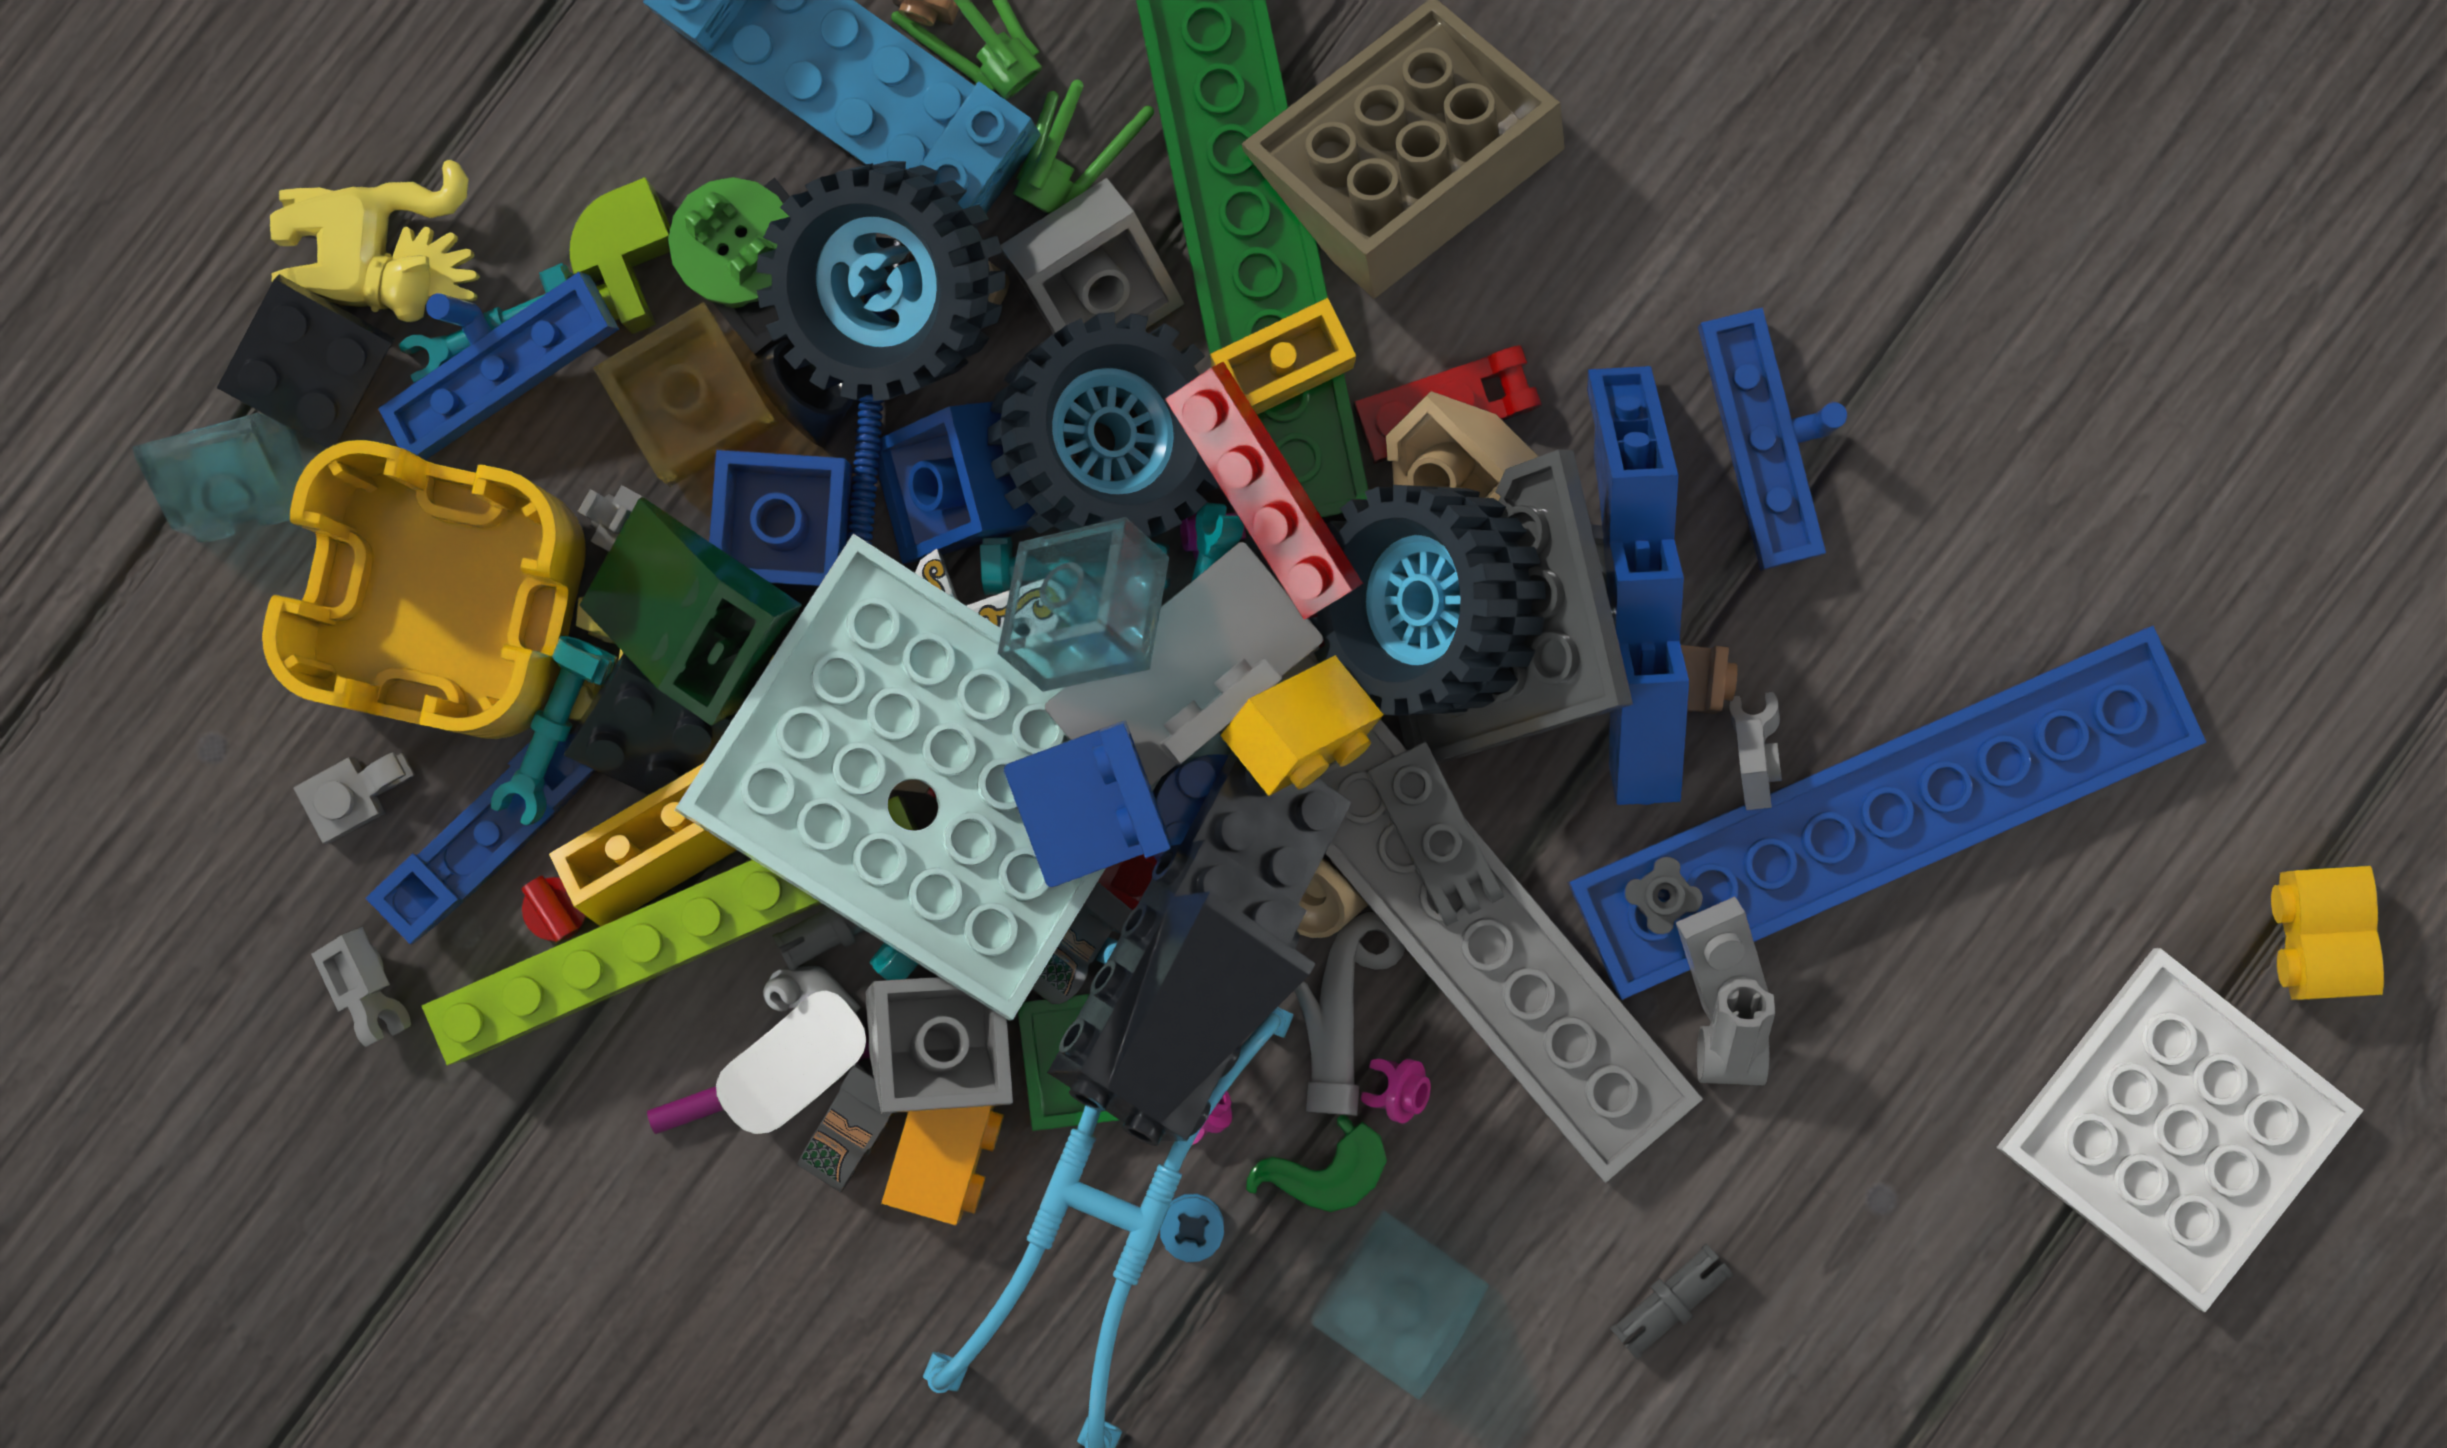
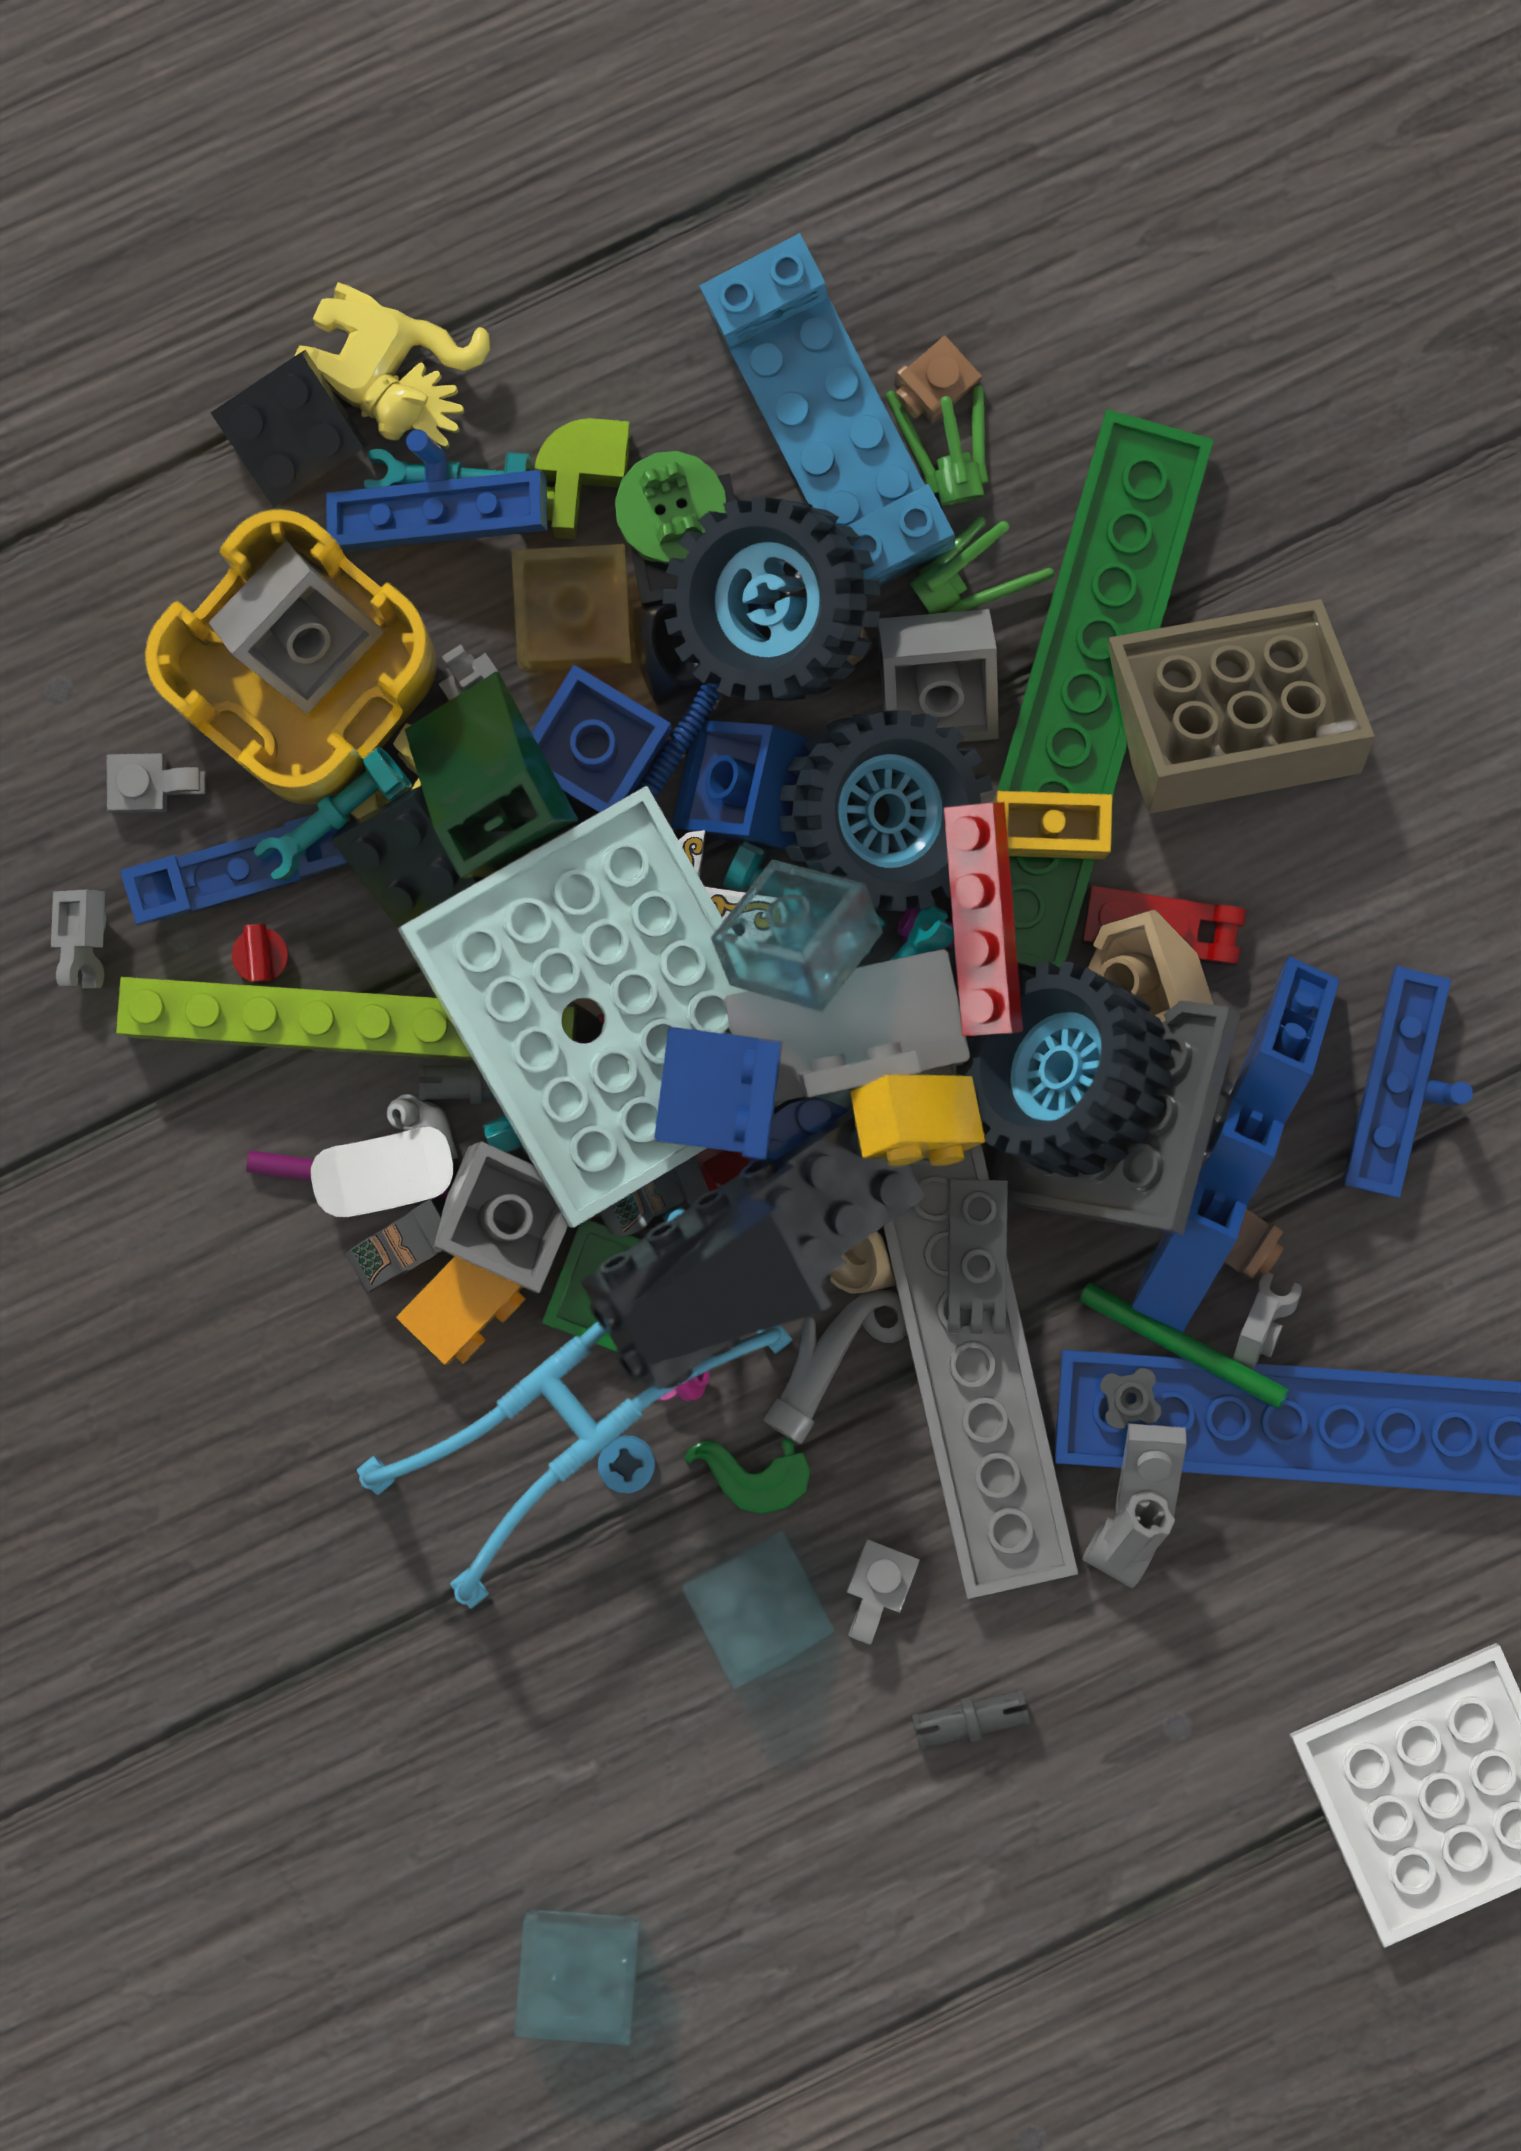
camera: 25 degrees right, 0 degrees up
(223, 475) = (182, 486): clear light blue slope -> none
(413, 559) = (295, 627): none -> light grey slope
(636, 855) = (348, 947): yellow brick -> none
(1406, 1091) = (849, 1446): dark pink plate -> none
(1509, 1209) = (881, 1581): none -> light grey plate
(1690, 814) = (1185, 1346): none -> green bar

